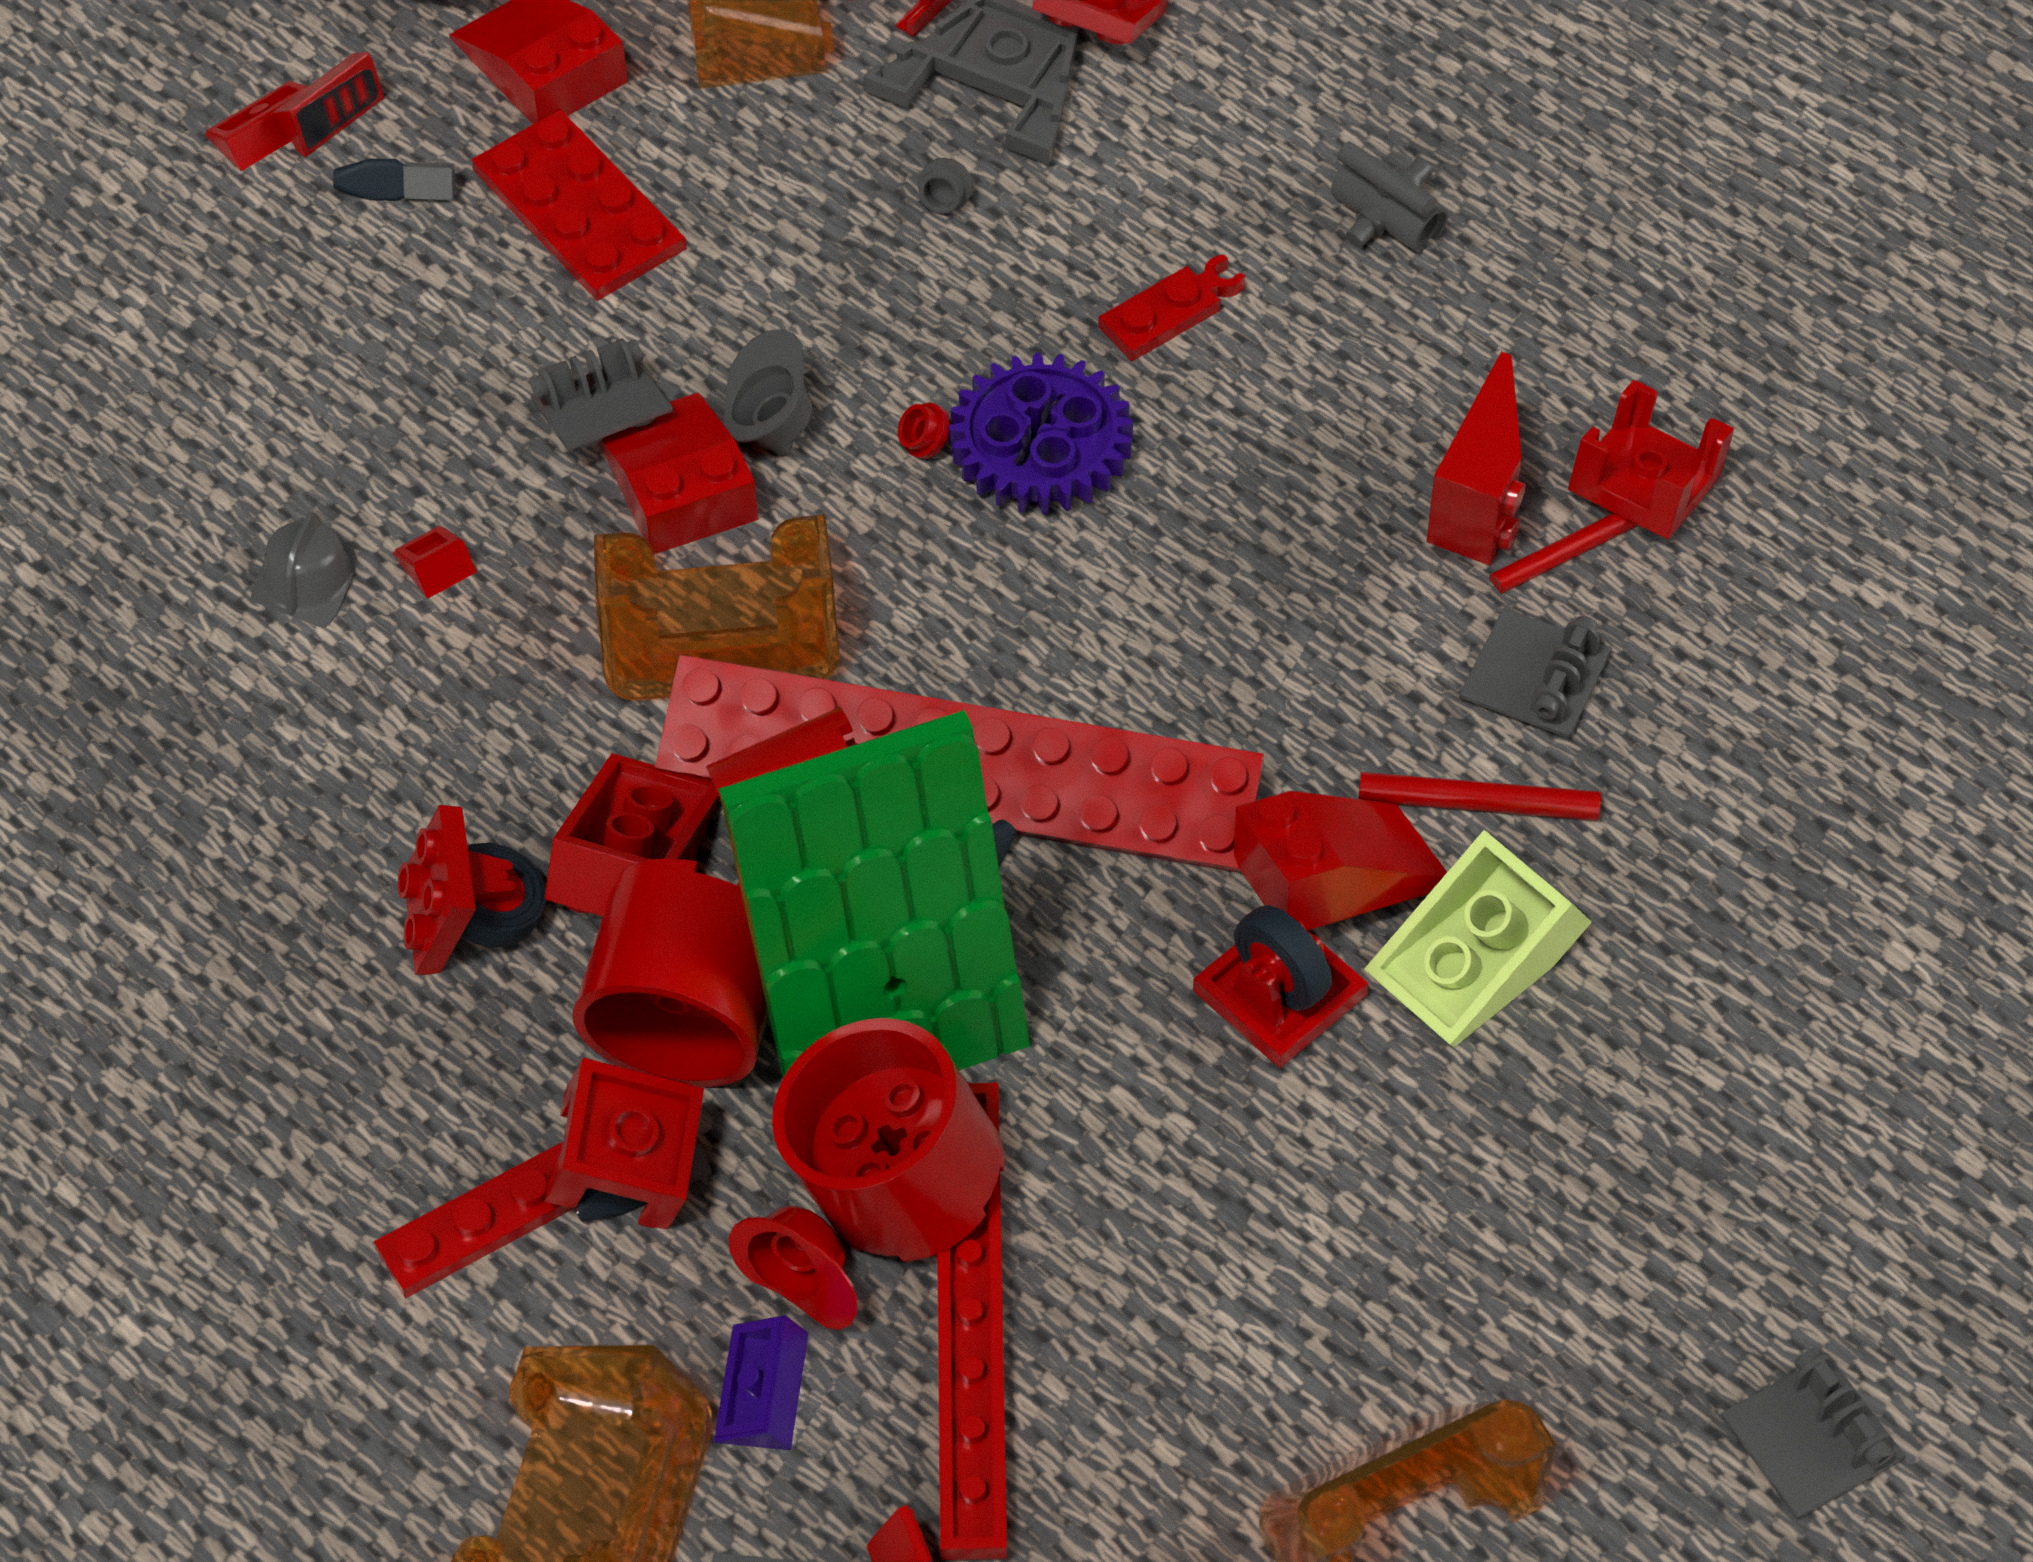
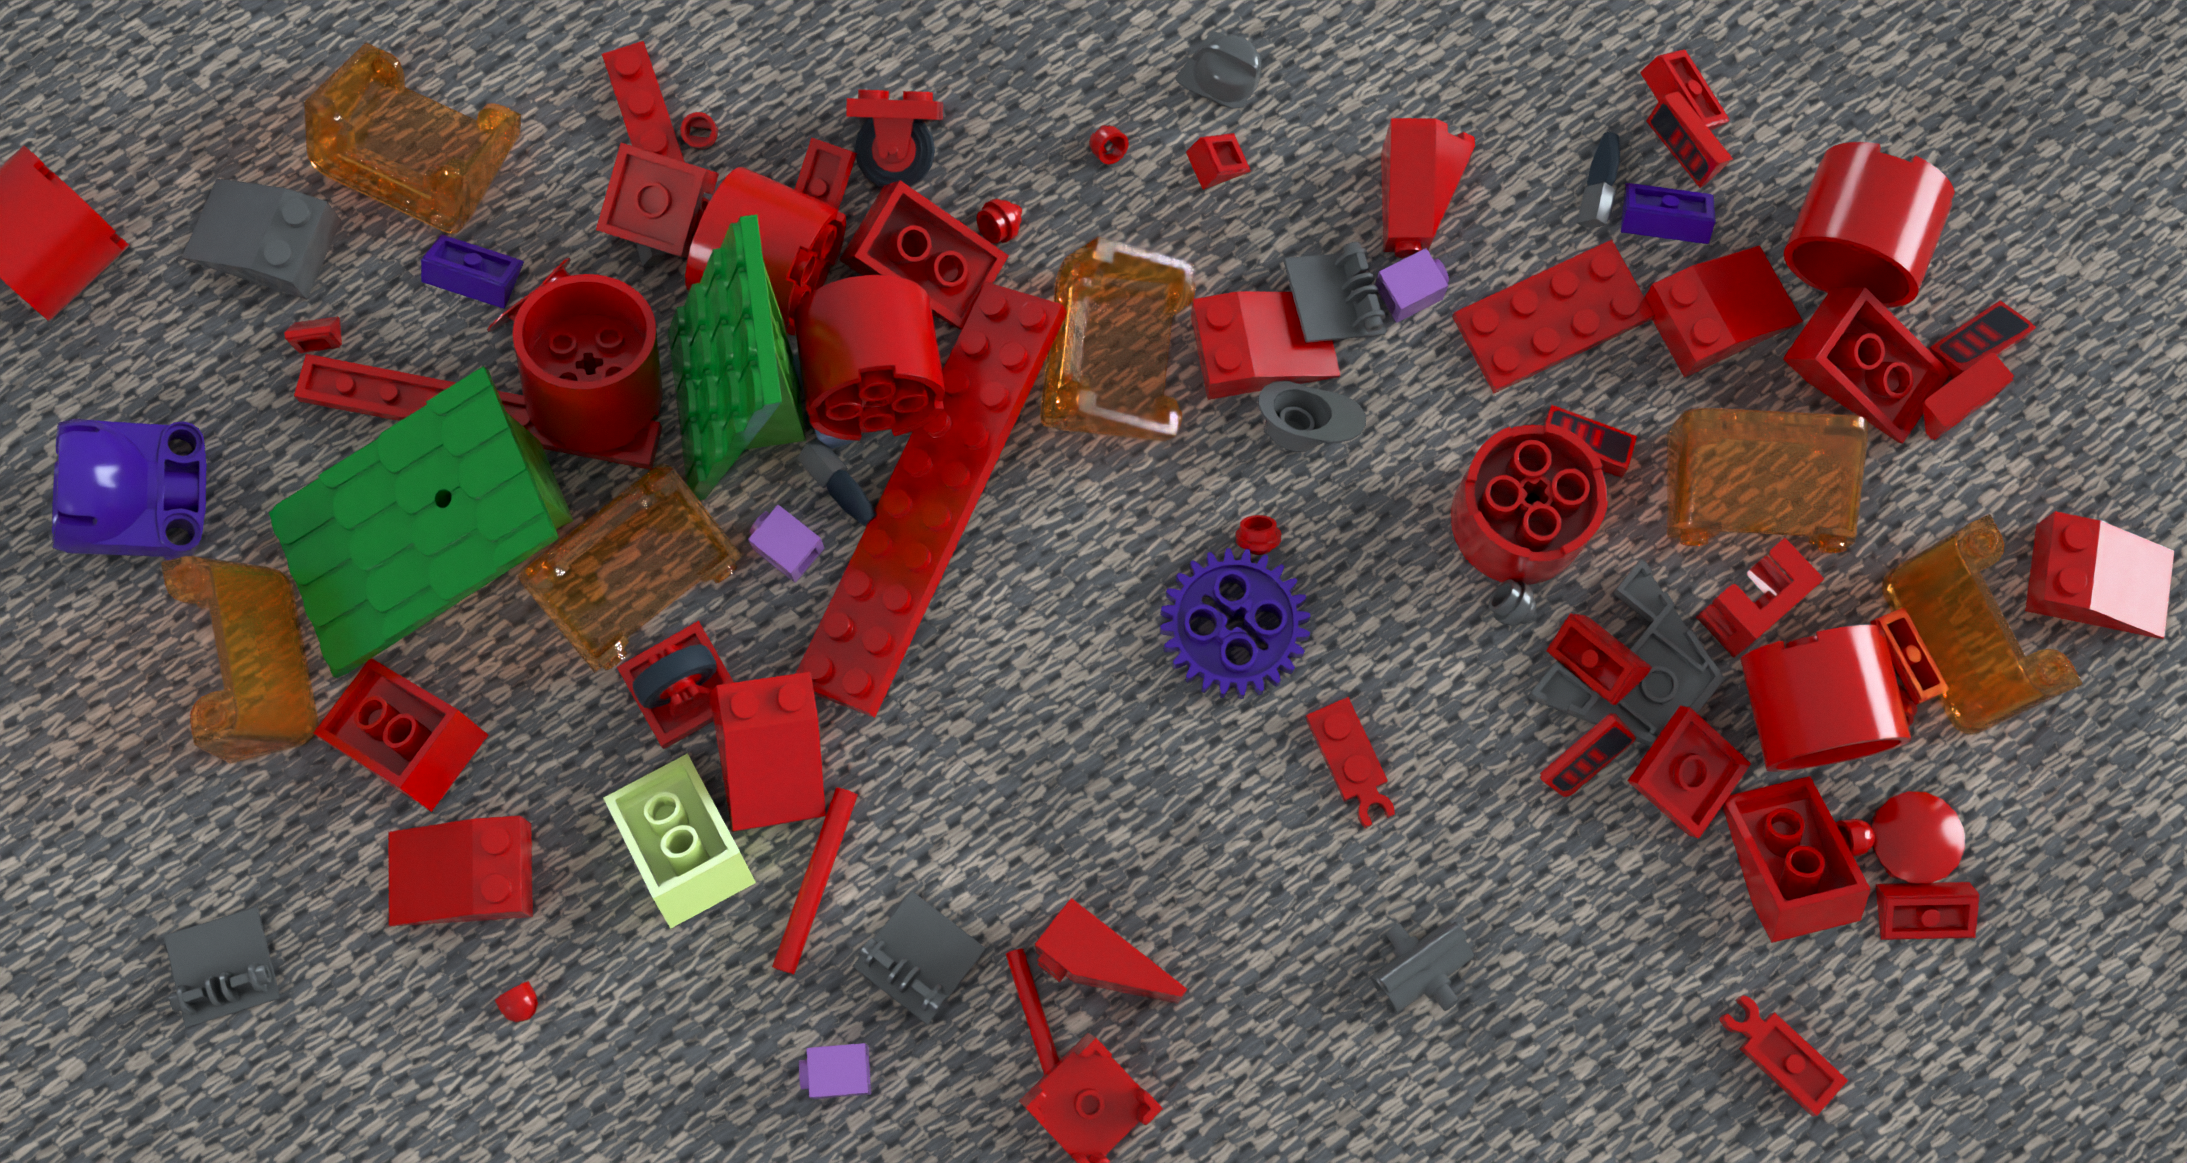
camera: 100 degrees right, 20 degrees up
(423, 117) = (1668, 213): none -> dark purple slope
(434, 670) = (1116, 137): none -> red hinge
(446, 341) = (1419, 180): none -> red slope
(515, 1137) = (699, 121): none -> red hinge
(543, 962) = (825, 172): none -> red plate
(567, 768) = (999, 220): none -> red plate
(569, 325) = (1412, 284): none -> medium lavender brick
(729, 151) = (1610, 444): none -> slope
(834, 162) = (1522, 540): none -> red brick
(992, 97) = (1597, 658): none -> red slope
(1064, 906) = (785, 542): none -> medium lavender brick
(1102, 93) = (1588, 755): none -> slope
(1128, 1085) = (628, 565): none -> clear orange windscreen
(1169, 1296) = (418, 521): none -> green piece
(1439, 1294) = (401, 733): none -> red slope
(1599, 1173) = (461, 871): none -> red slope
(1700, 714) = (836, 1071): none -> medium lavender brick
(1739, 1066) = (518, 1003): none -> red hinge

